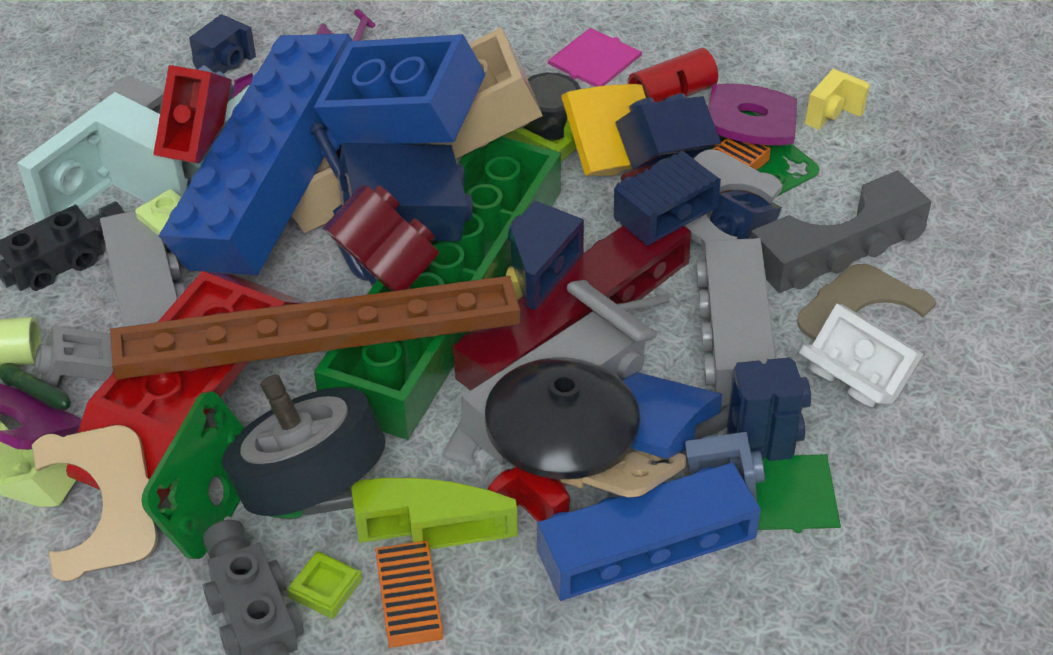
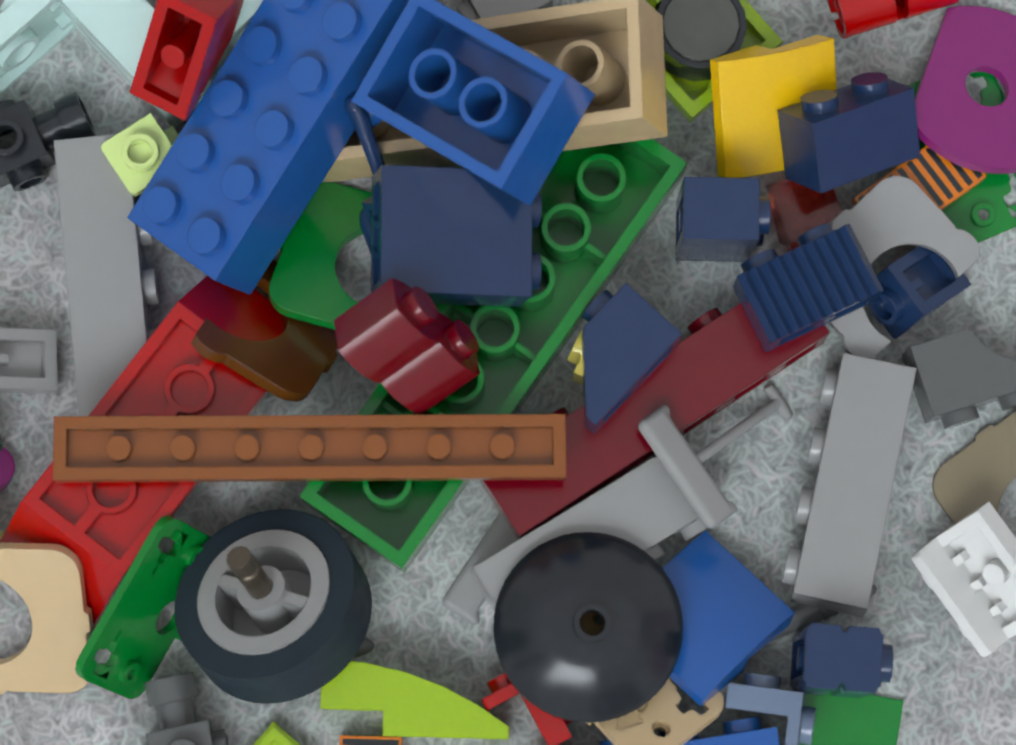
camera: 10 degrees right, 35 degrees up
(271, 287) = (282, 365): none -> reddish brown piece
(302, 263) = (305, 275): none -> green piece
(588, 181) = (720, 219): none -> dark blue brick

